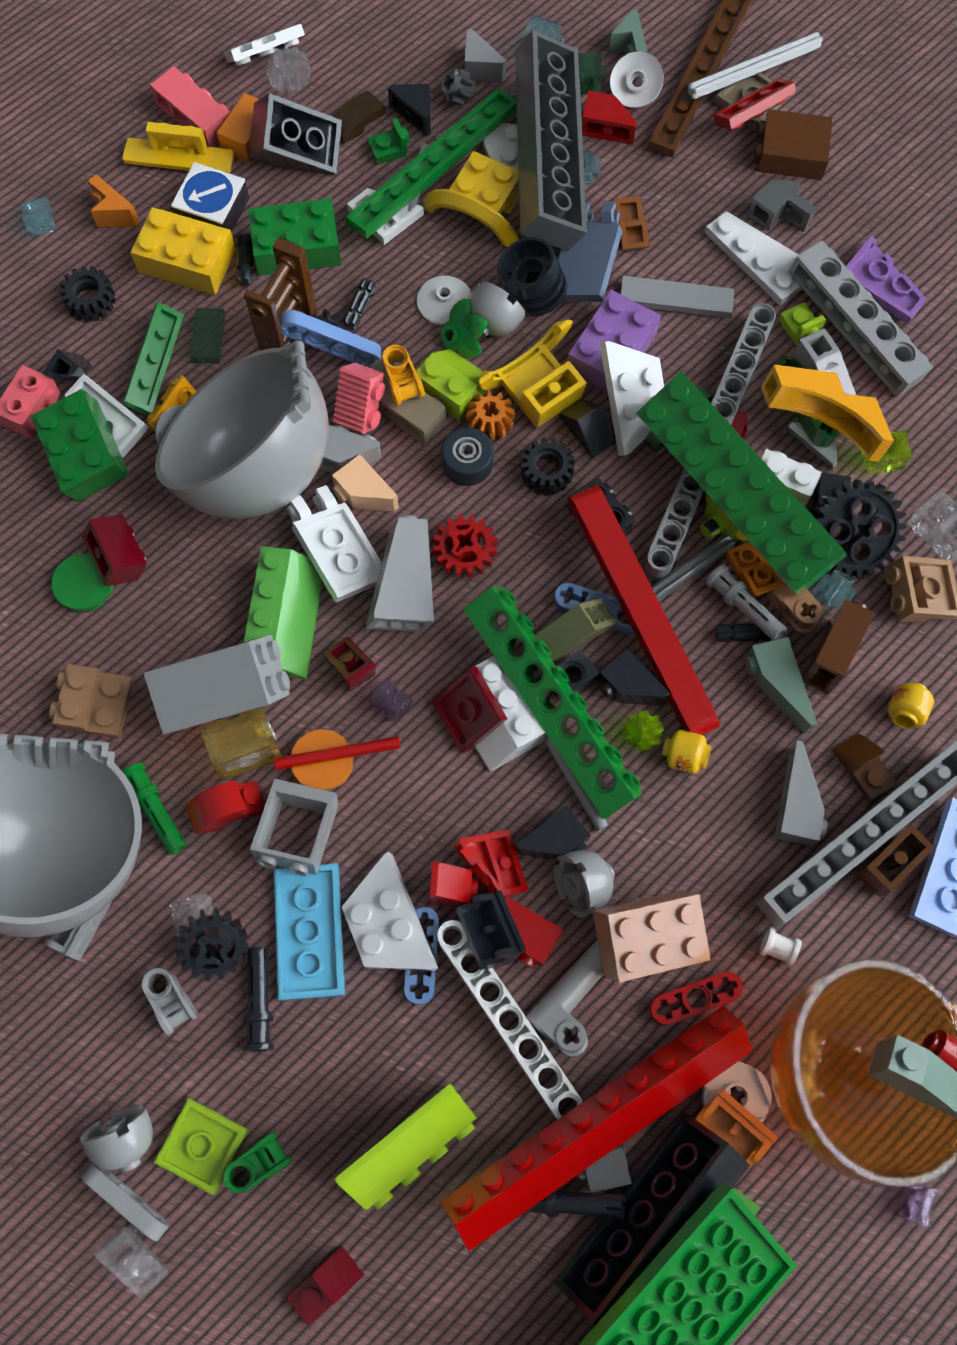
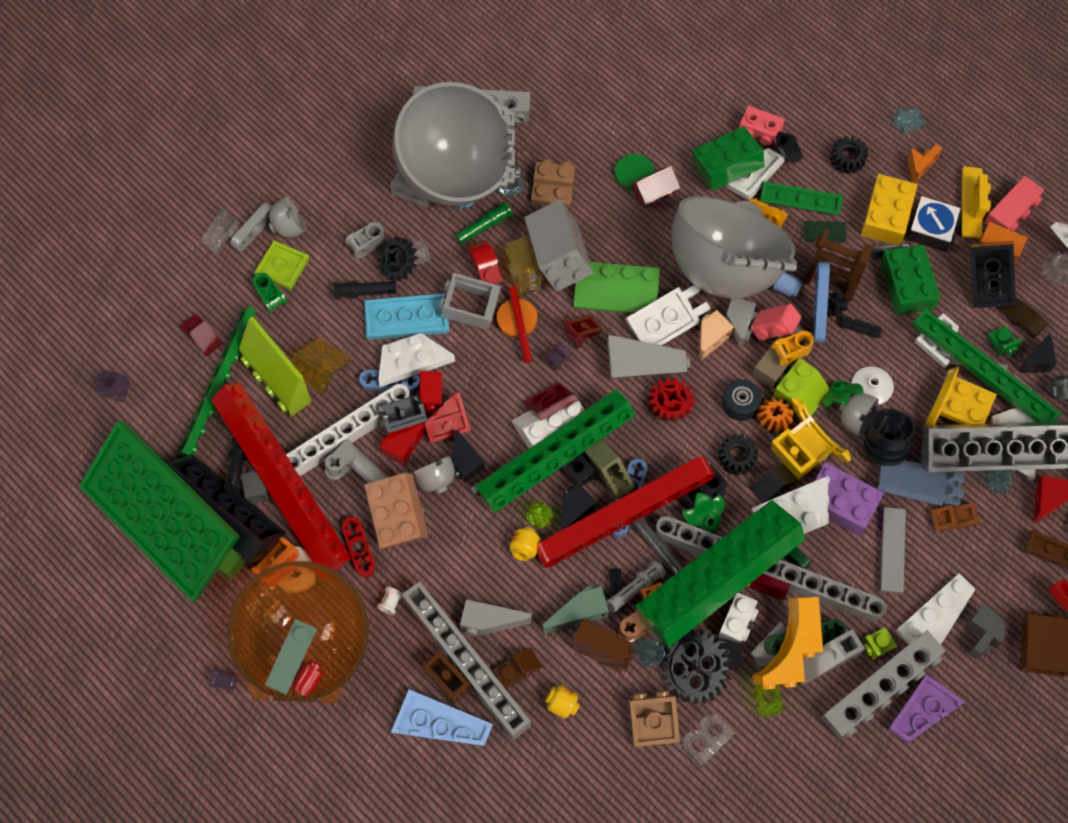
camera: 90 degrees right, 5 degrees down
(390, 1071) = (318, 363): none -> clear yellow bracket
(418, 1249) = (221, 374): none -> green plate
(639, 507) = (703, 510): none -> green plate

